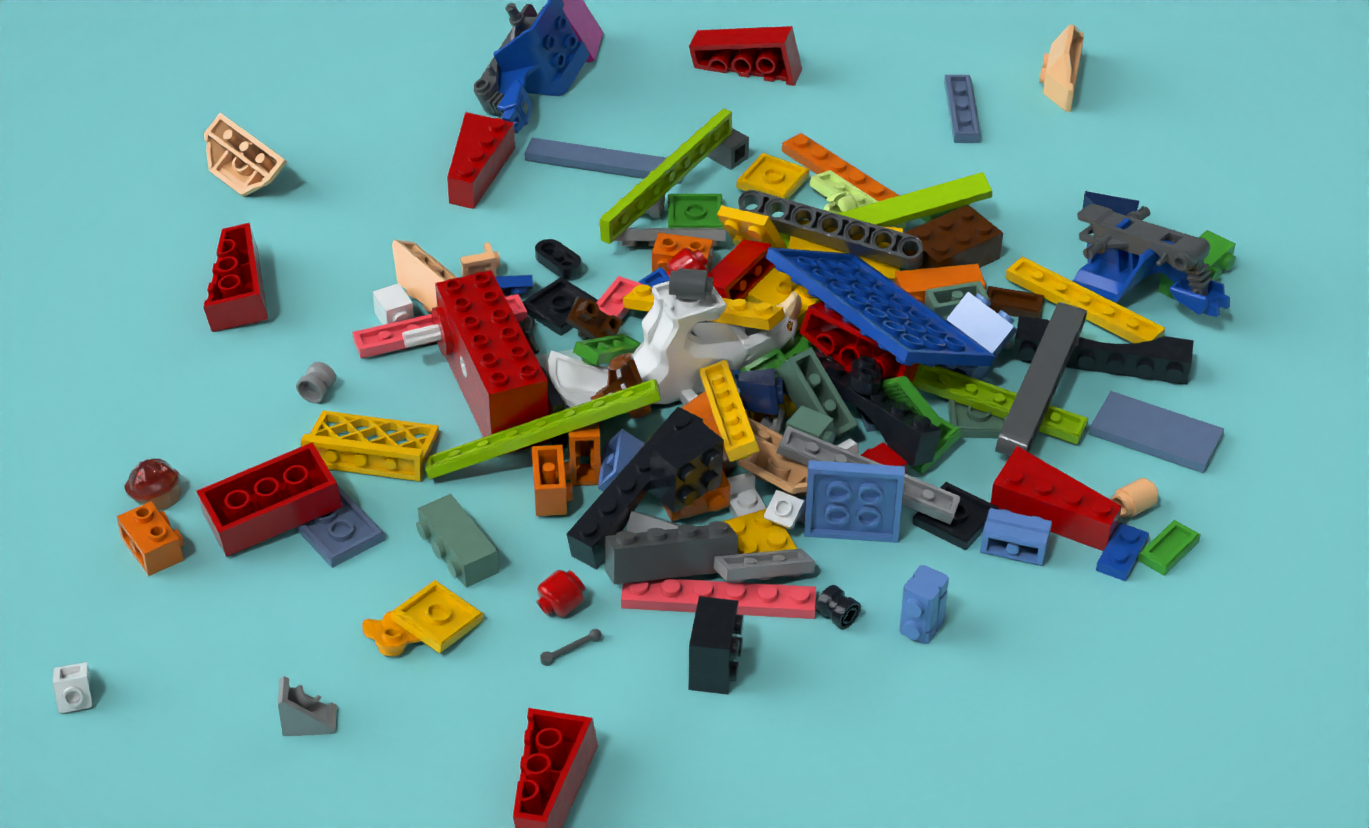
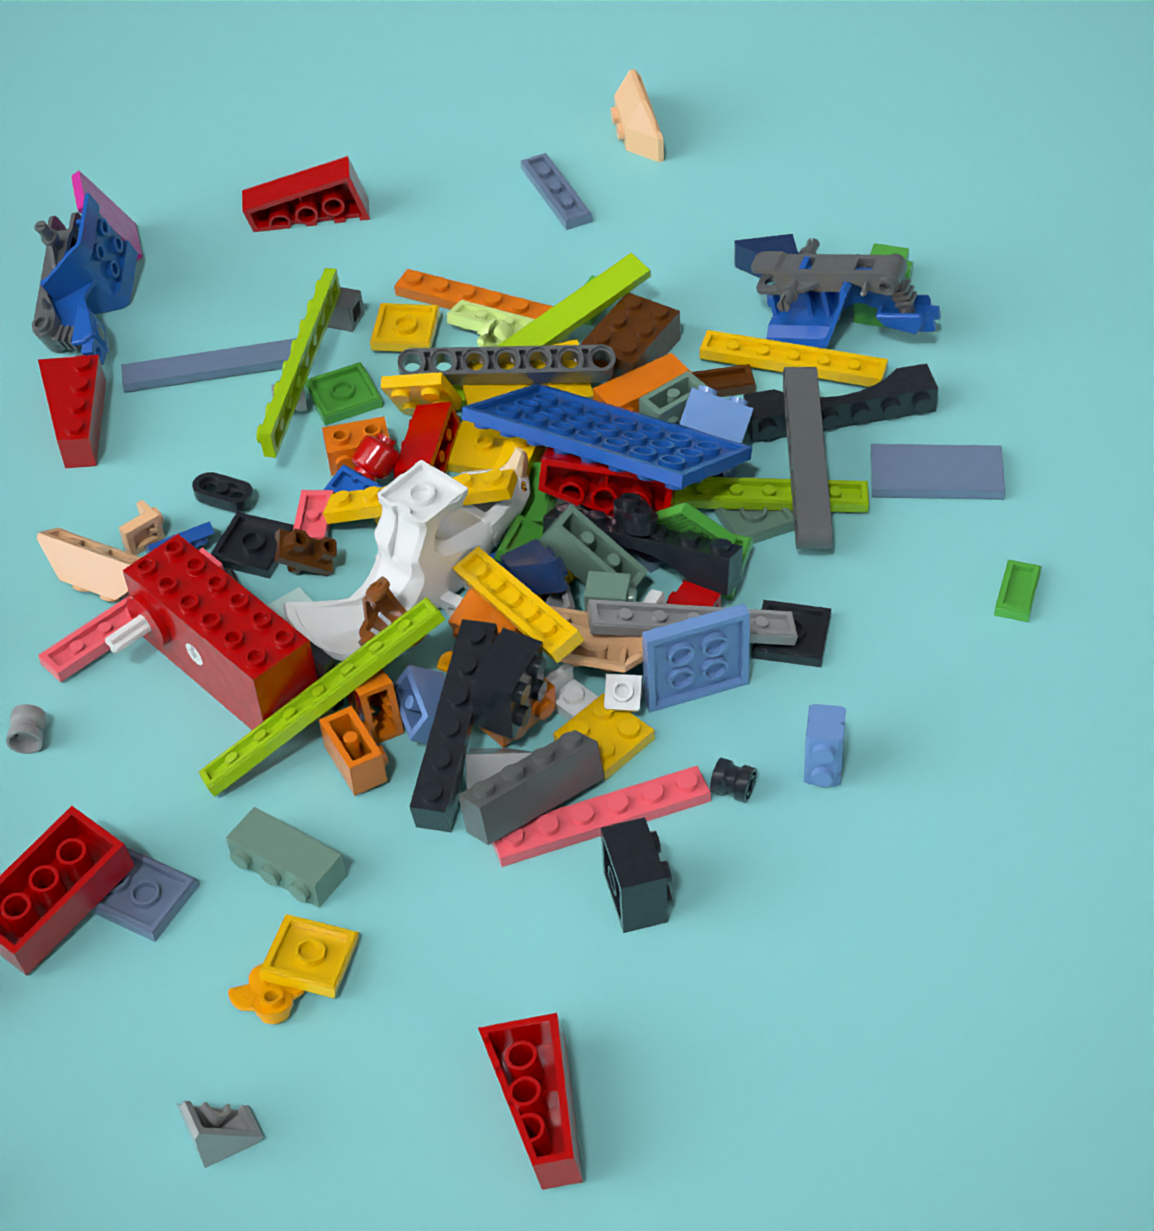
camera: 20 degrees left, 5 degrees up
(377, 456) = (128, 794): yellow fence -> none
(392, 304) = (68, 608): white brick -> none
(547, 658) = (454, 955): dark grey hinge -> none
(560, 593) = (433, 877): red head -> none
(604, 349) = (339, 577): bright green plate -> none
(632, 235) = (313, 430): light grey plate -> none
(690, 284) = (422, 479): dark grey brick -> none
(764, 565) = (632, 762): light grey plate -> none
(1016, 536) = (868, 634): medium blue brick -> none
(1038, 489) = (886, 582): red wedge -> none
(1122, 551) = (976, 612): blue plate -> none
(1136, 497) = (959, 550): light nougat brick -> none

